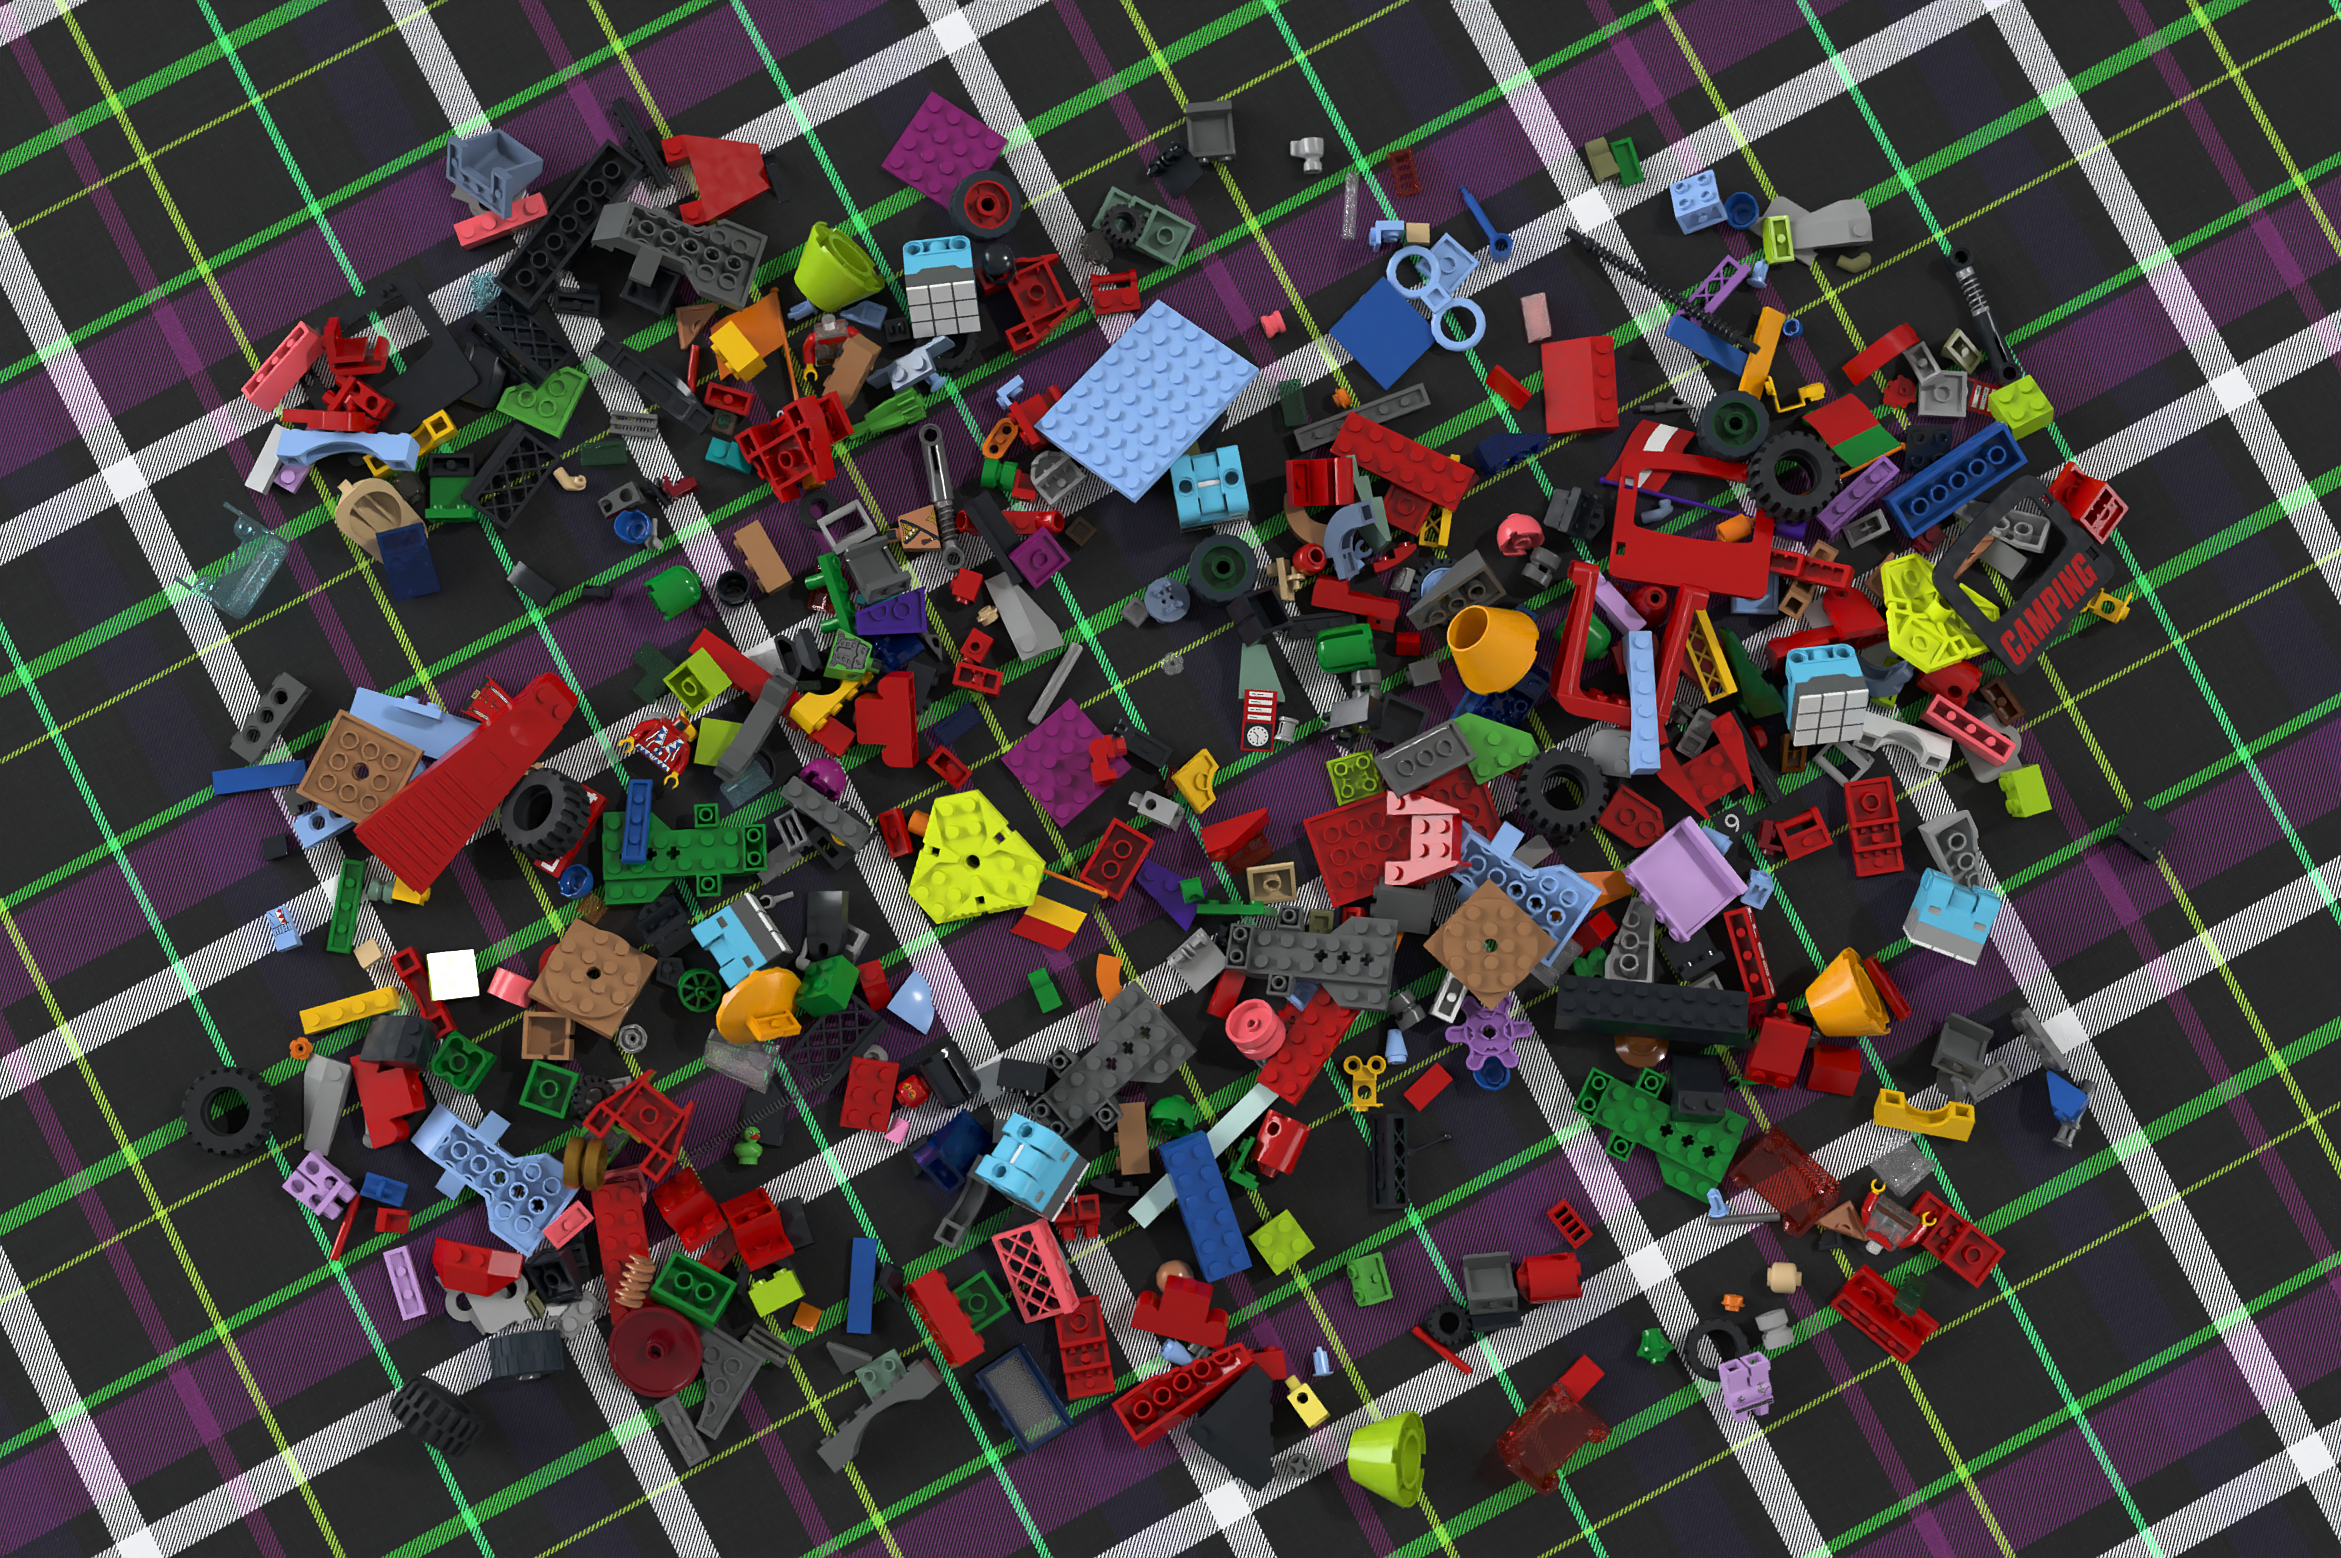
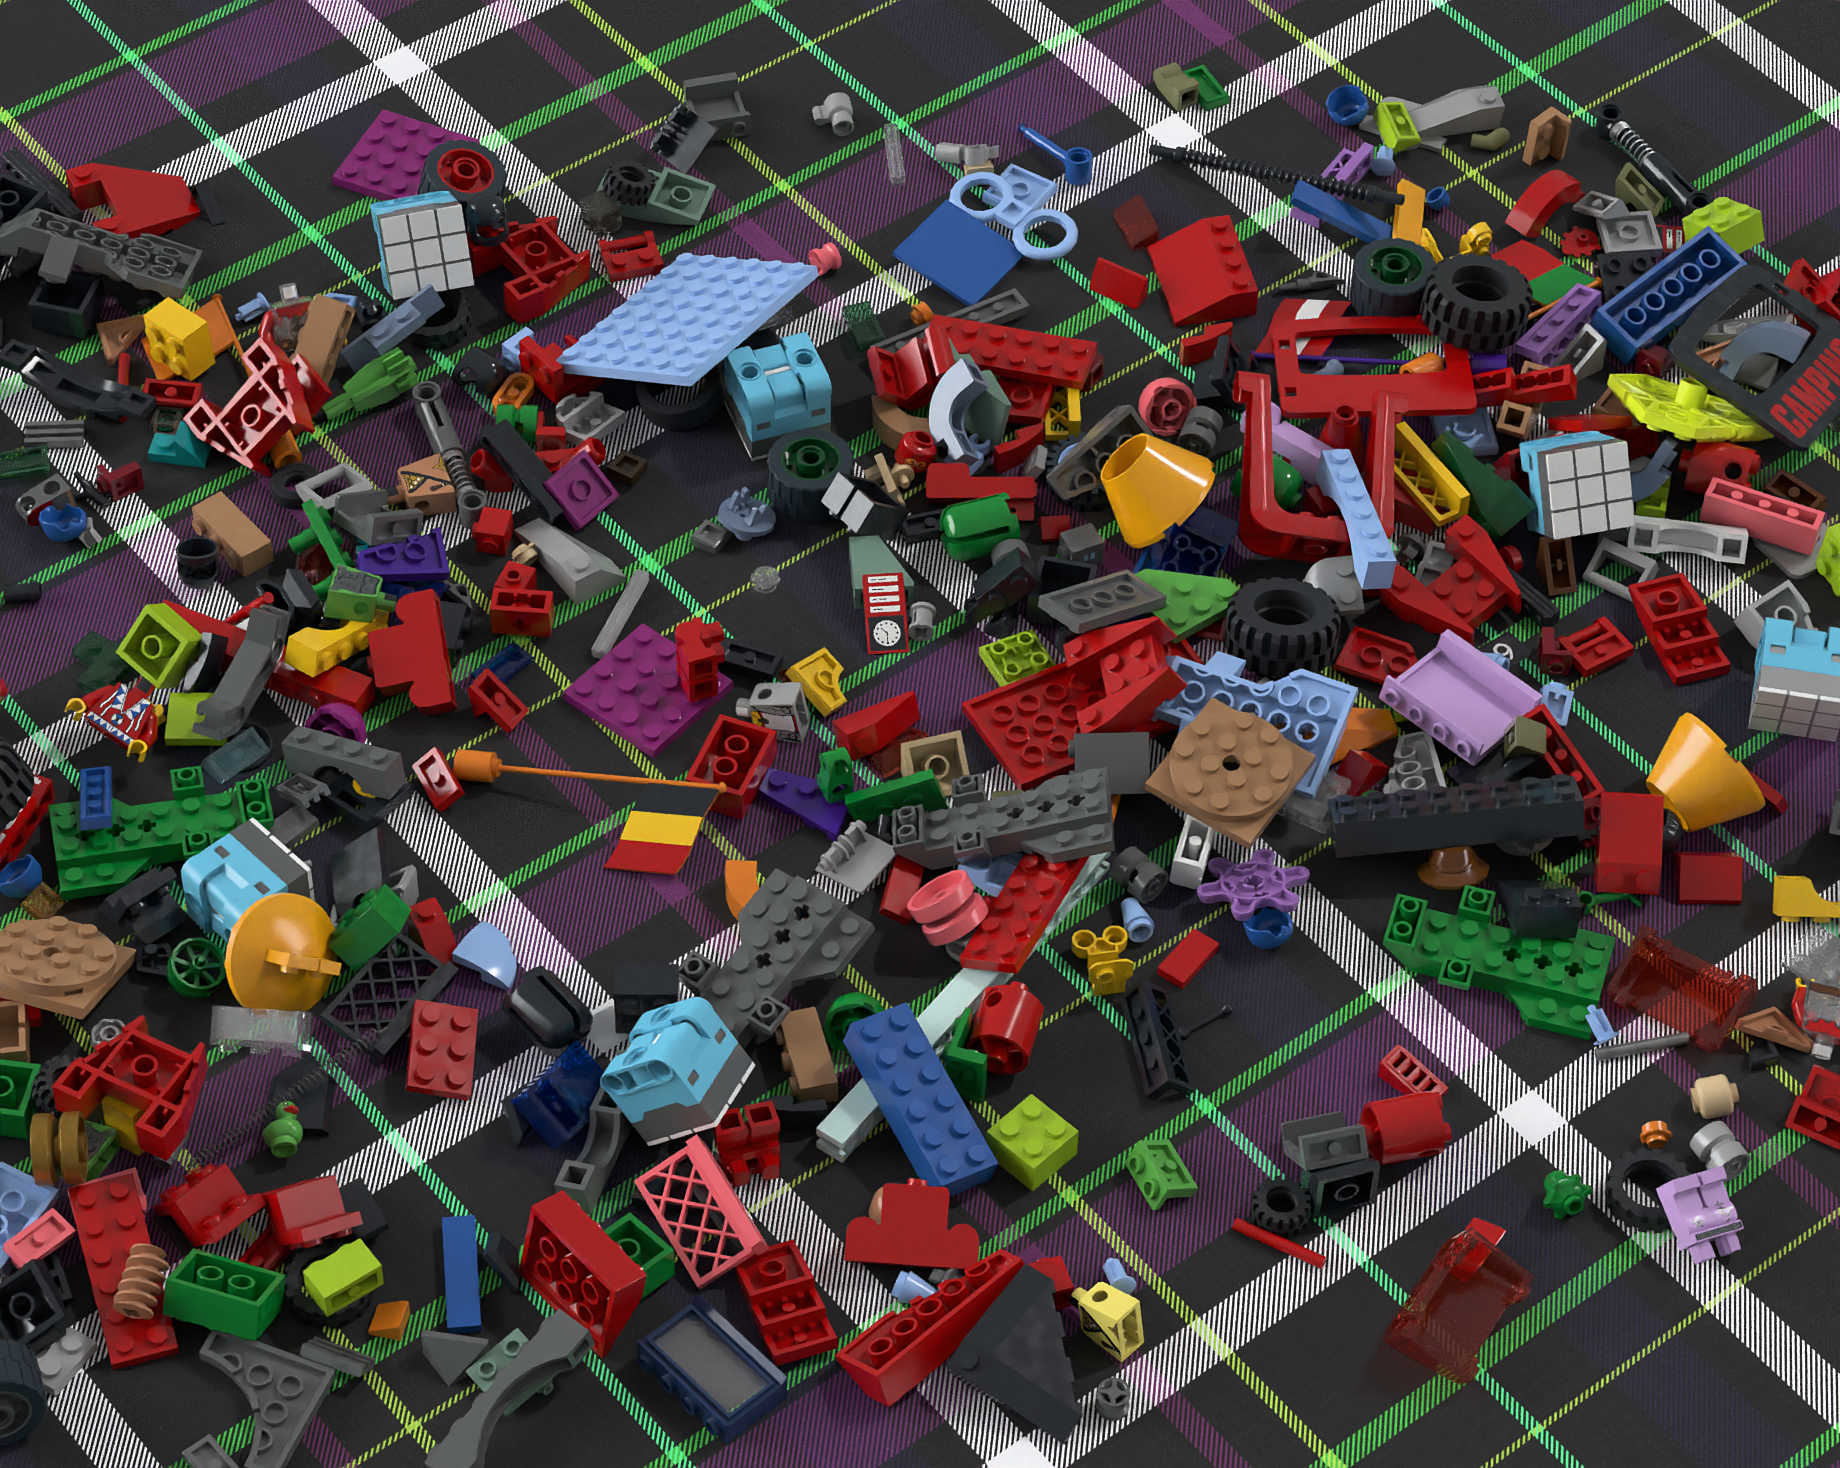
camera: 10 degrees left, 35 degrees down
(655, 1350) = (177, 1375): dark red dish -> none
(674, 591) = (119, 571): green cylinder -> none
(732, 699) = (203, 673): none -> black slope
(767, 655) = (244, 613): none -> red bar
(835, 270) = (289, 249): lime cone -> none
(897, 1130) = (486, 1091): bright pink slope -> none
(913, 1092) = (502, 1041): red head -> none
(935, 381) = (426, 353): light blue piece -> none
(950, 883) = (533, 748): neon yellow plate -> none
(979, 413) = (486, 371): none -> black helmet
(1044, 990) = (661, 918): green leg -> none
(1385, 230) = (941, 159): light blue bracket -> none
(1388, 1457) = (1234, 1348): lime cone -> none
(1407, 152) = (949, 102): clear red slope -> none
(1414, 224) = (972, 155): none -> light grey bar
(1507, 448) = (1134, 326): clear blue slope -> none
(1572, 463) = (1202, 347): none -> red slope
(1697, 202) = (1297, 104): light blue bracket -> none
(1721, 939) = (1524, 737): none -> olive slope
(1907, 276) = (1546, 136): none -> medium nougat bracket
(2014, 557) = (1765, 337): none -> sand blue arch

